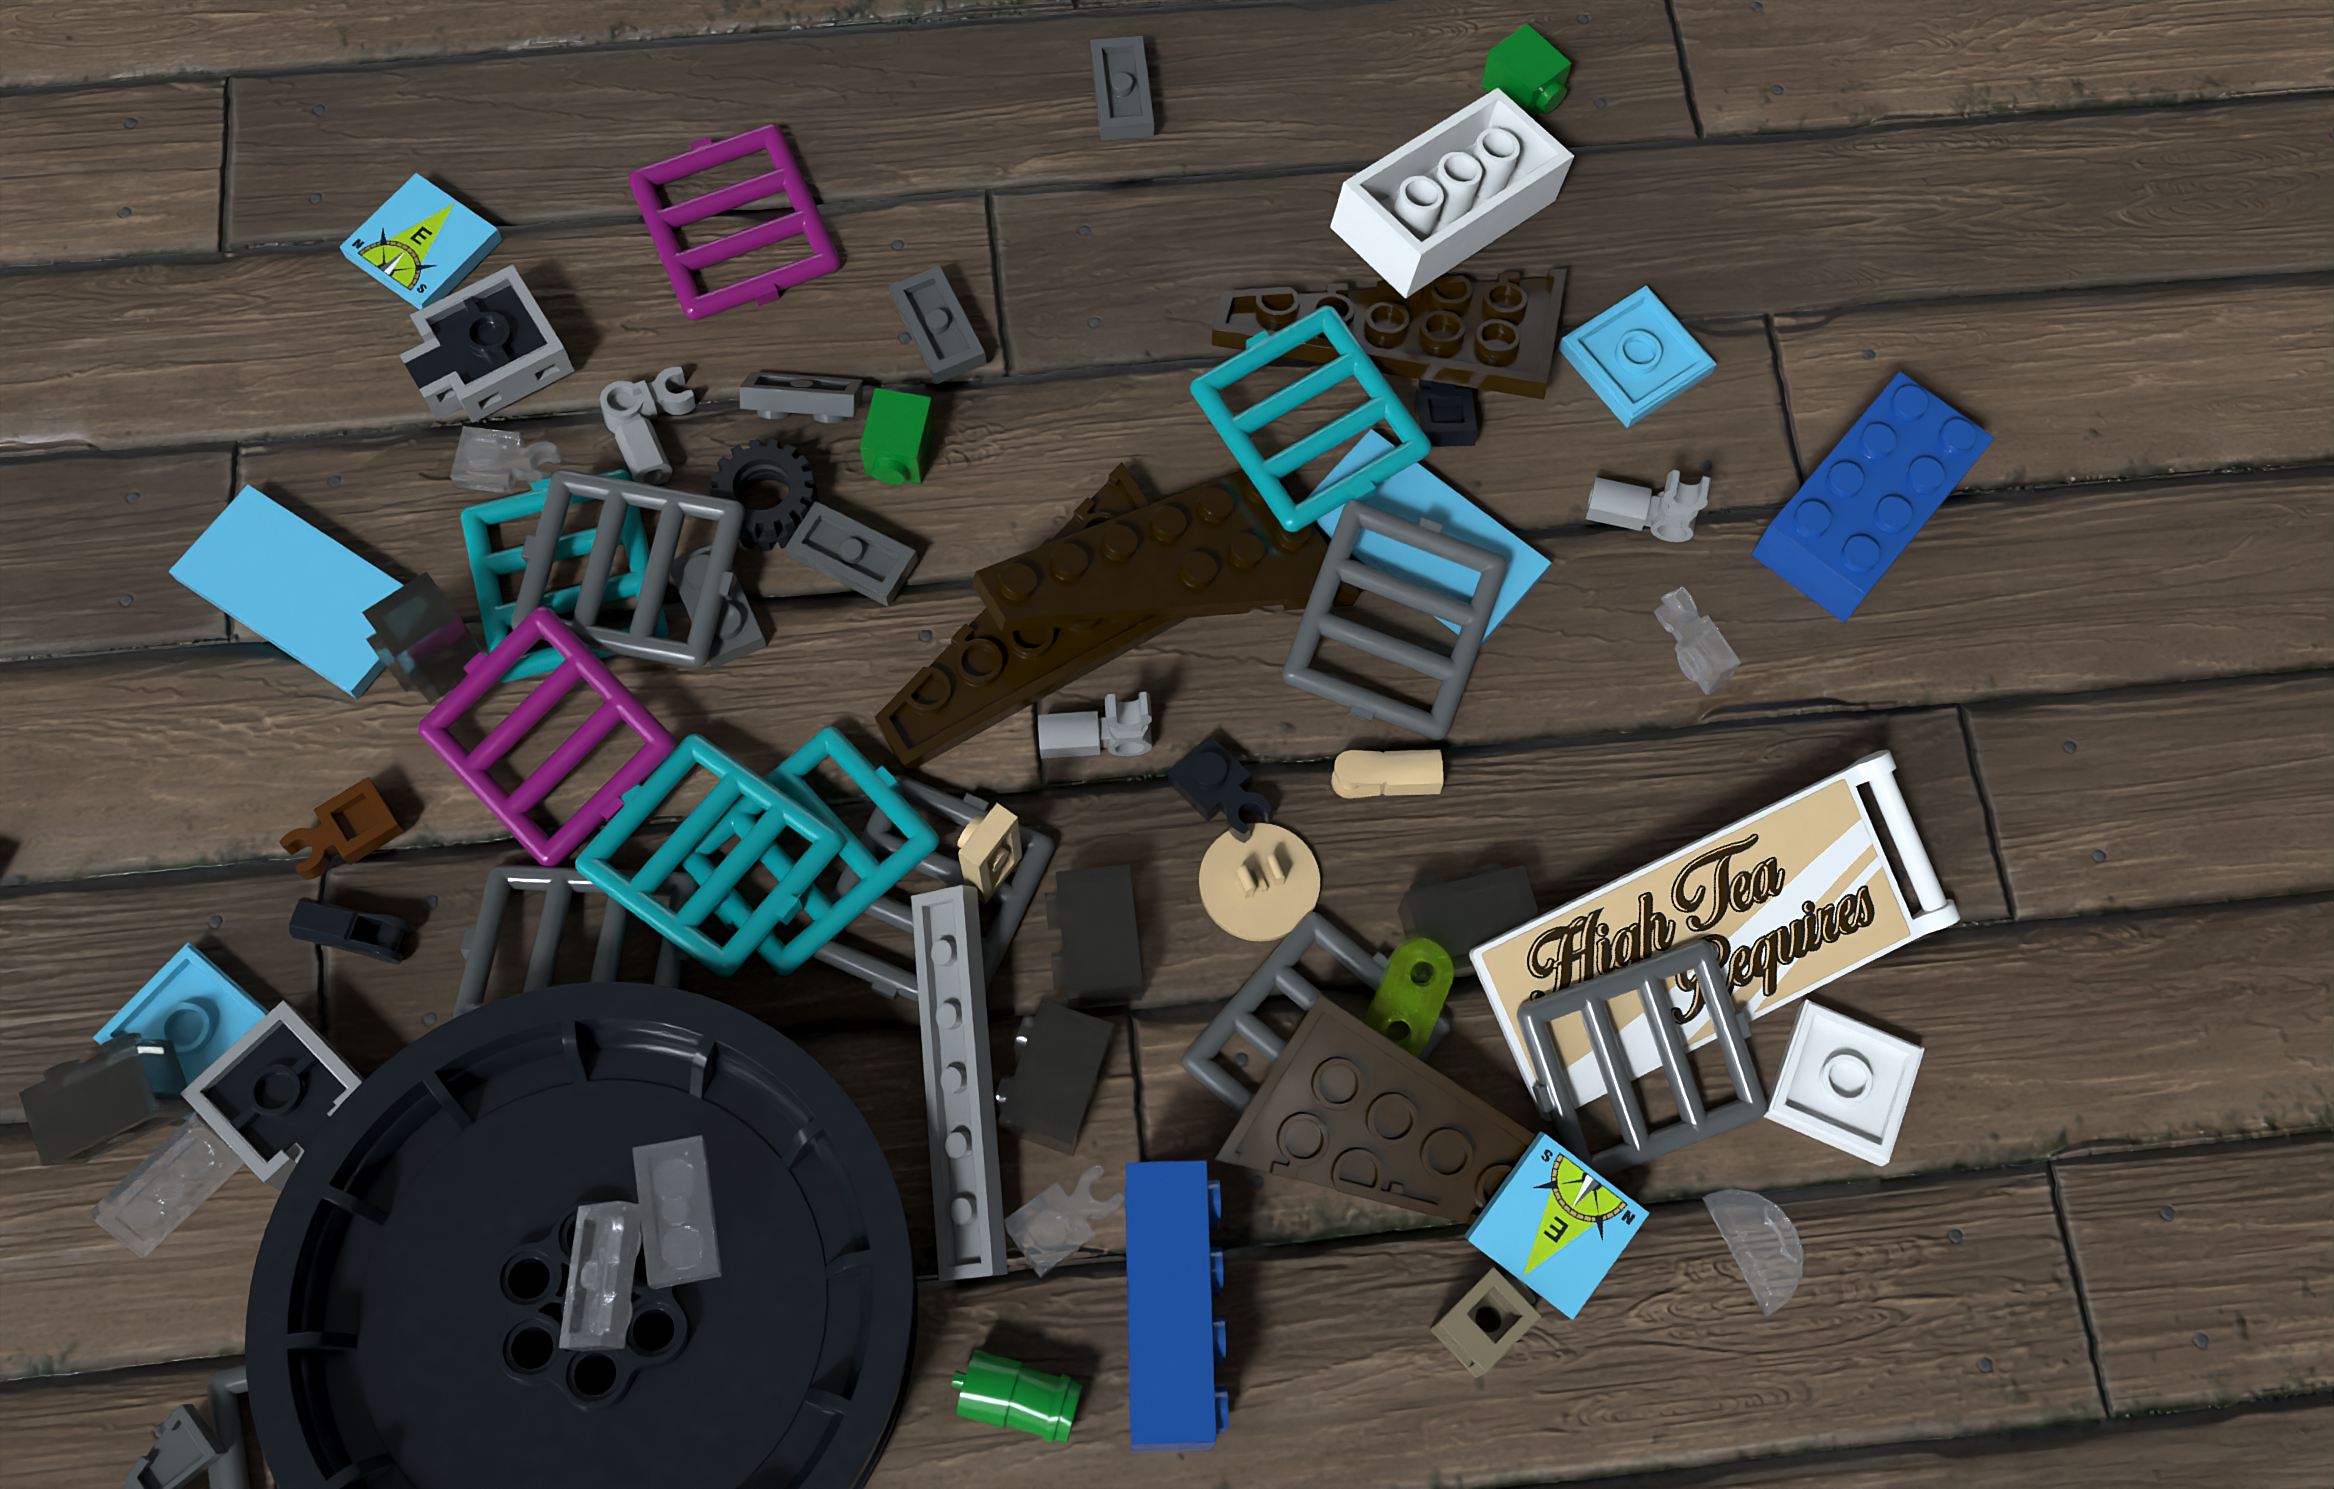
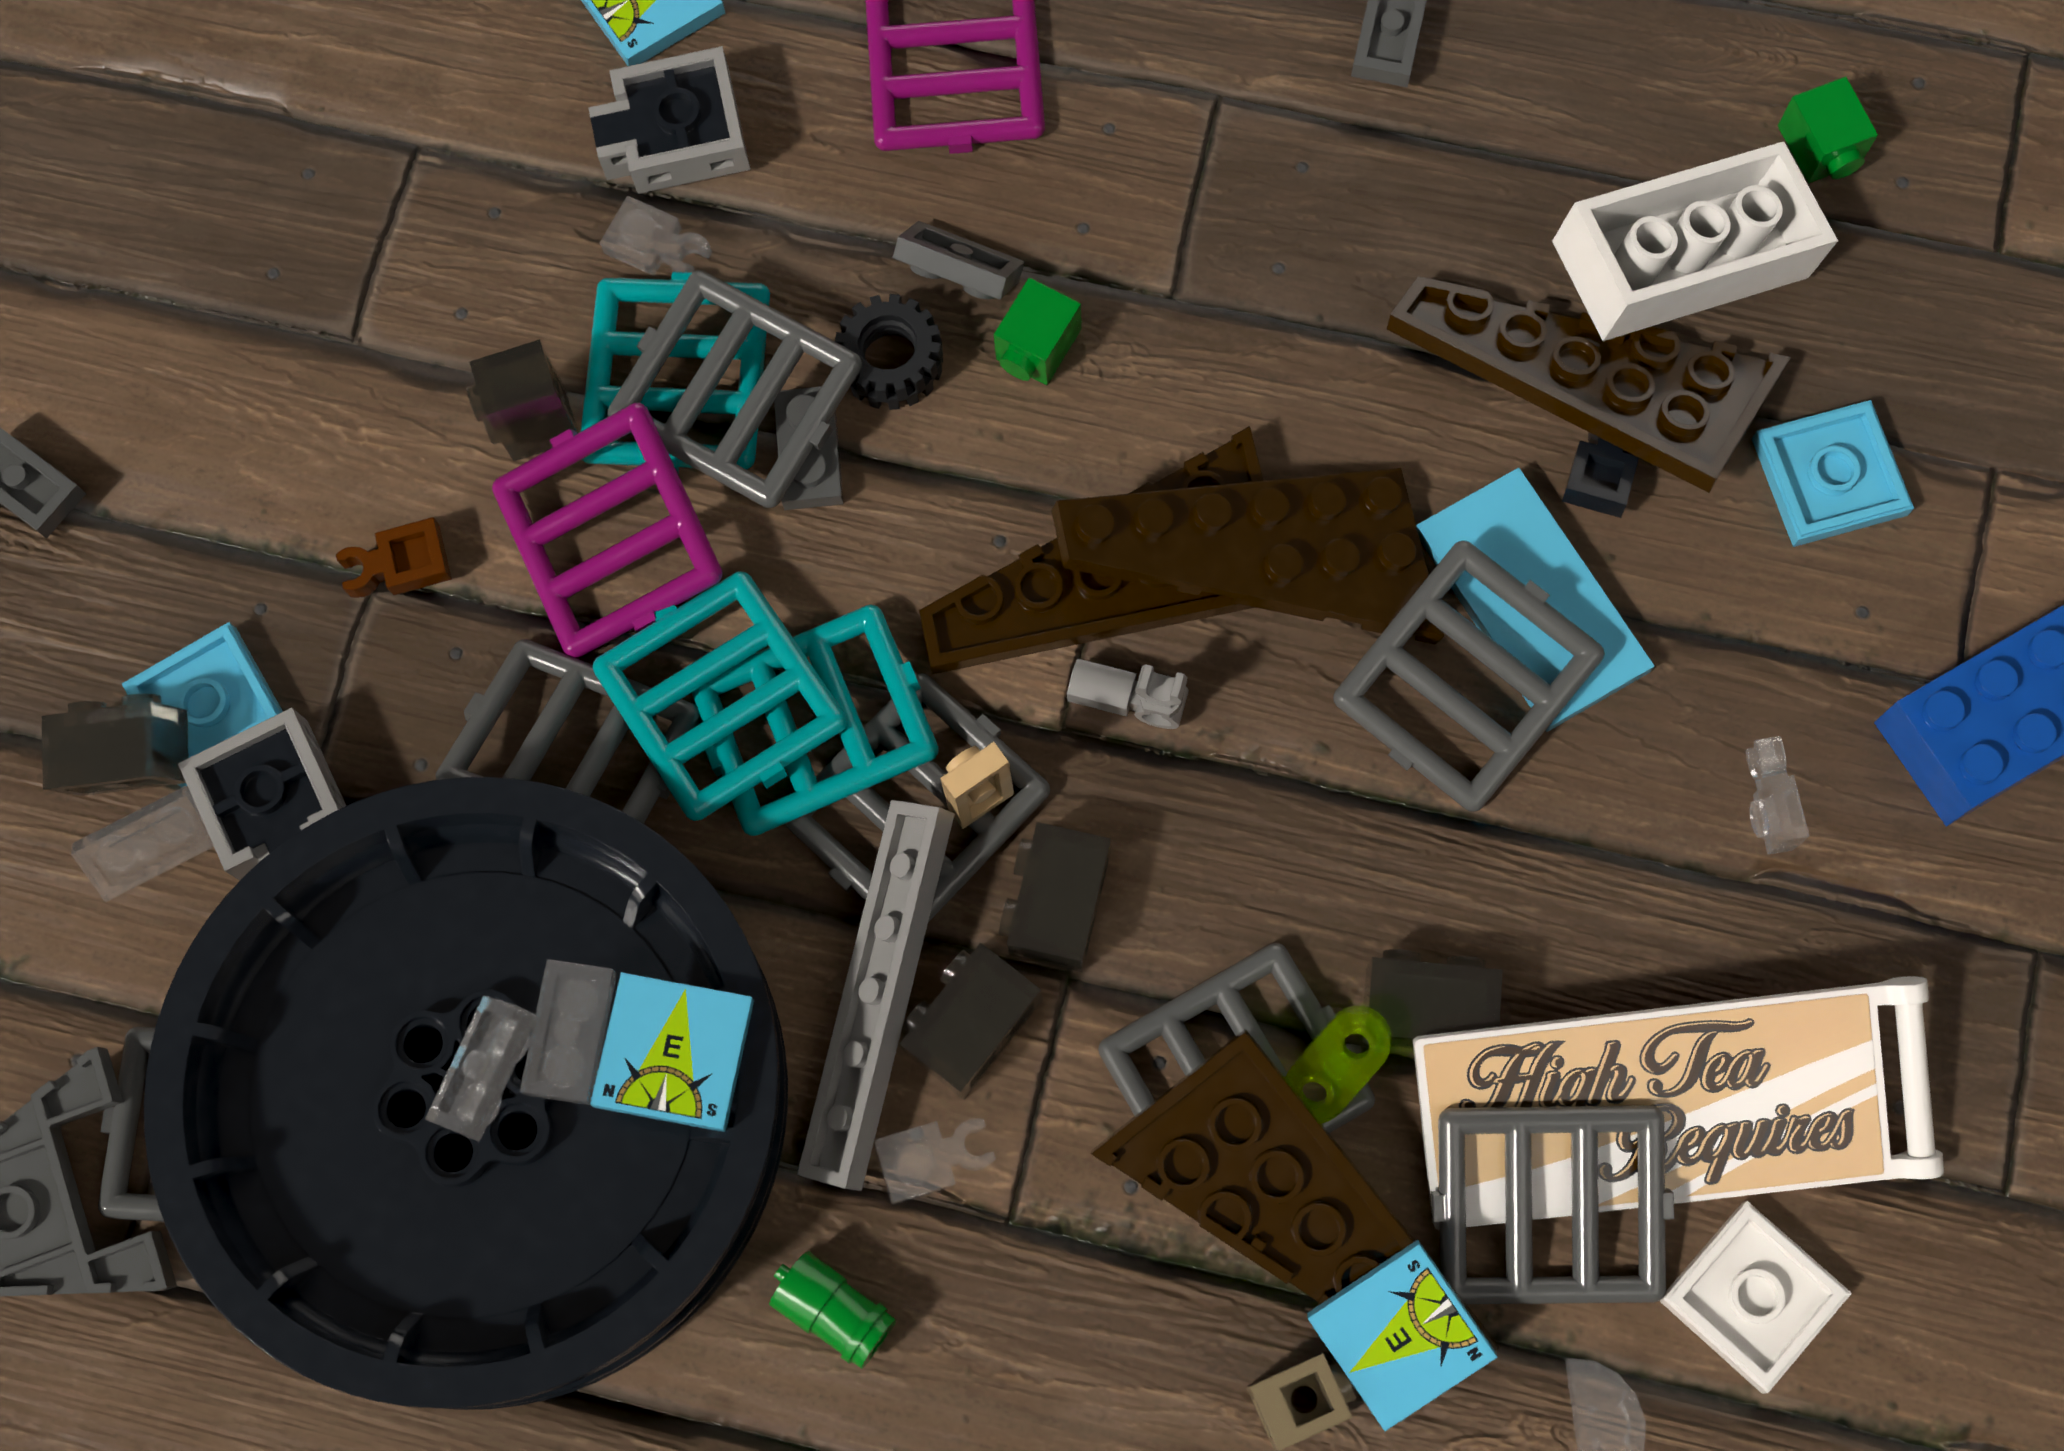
camera: 30 degrees right, 5 degrees up
(290, 587) = (421, 306): medium azure tile -> none
(347, 928) = (371, 656): black bar -> none
(628, 414) = (786, 227): light grey bar -> none
(786, 1196) = (672, 1052): none -> medium azure tile
(851, 553) = (953, 438): dark grey plate -> none
(937, 324) = (1117, 226): dark grey plate -> none
(1170, 1307) = (997, 1278): blue brick -> none
(1217, 782) = (1229, 783): black plate -> none
(1259, 885) = (1238, 894): tan piece -> none
(1266, 473) = (1519, 394): teal bar -> none
(1387, 773) = (1405, 829): tan bar -> none
(1668, 514) = (1797, 654): light grey bar -> none

